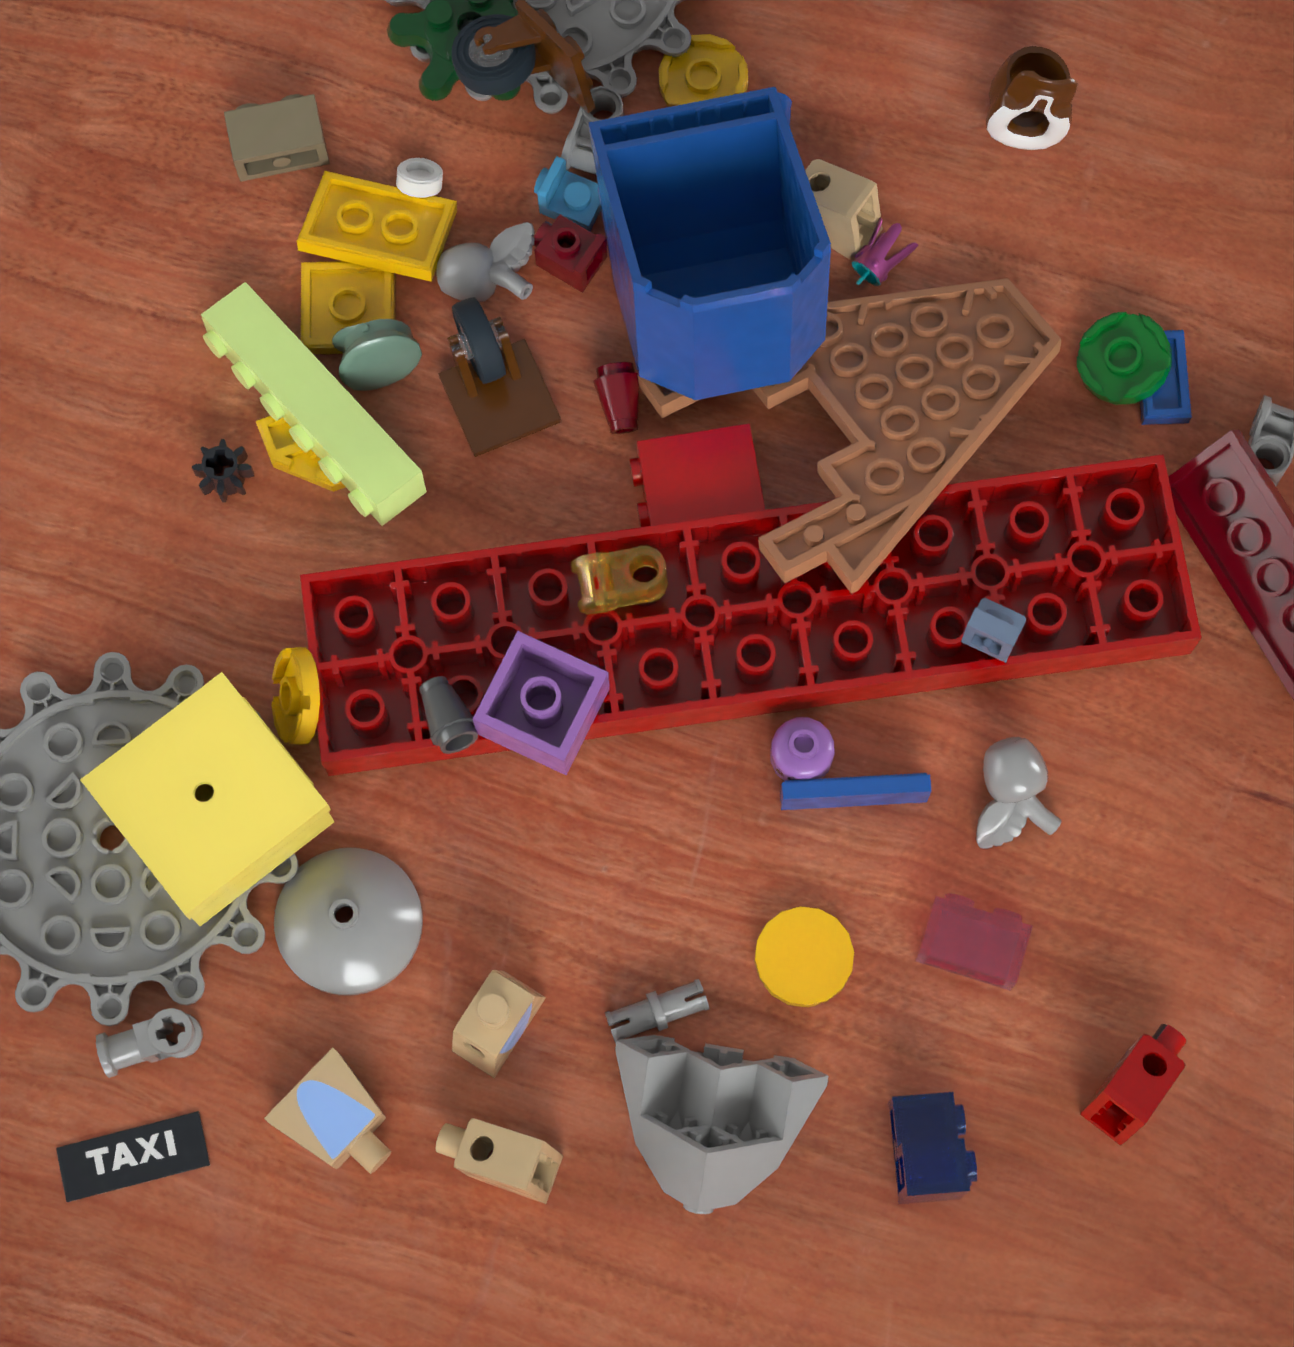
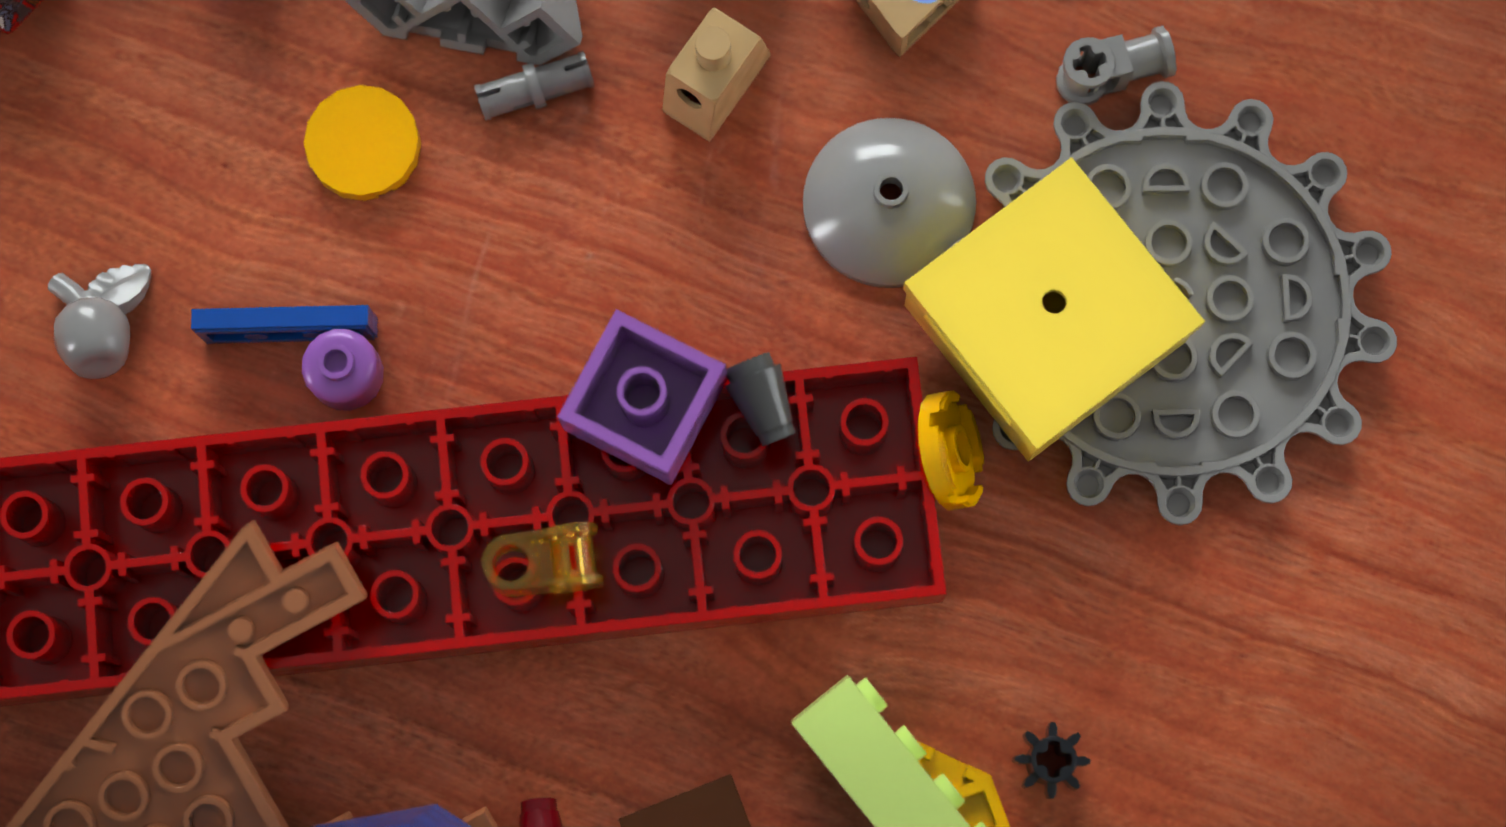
camera: 175 degrees left, 5 degrees up
(697, 475) = (446, 718): red brick -> none
(974, 941) = (164, 146): clear pink brick -> none
(993, 629) = (87, 481): sand blue bracket -> none

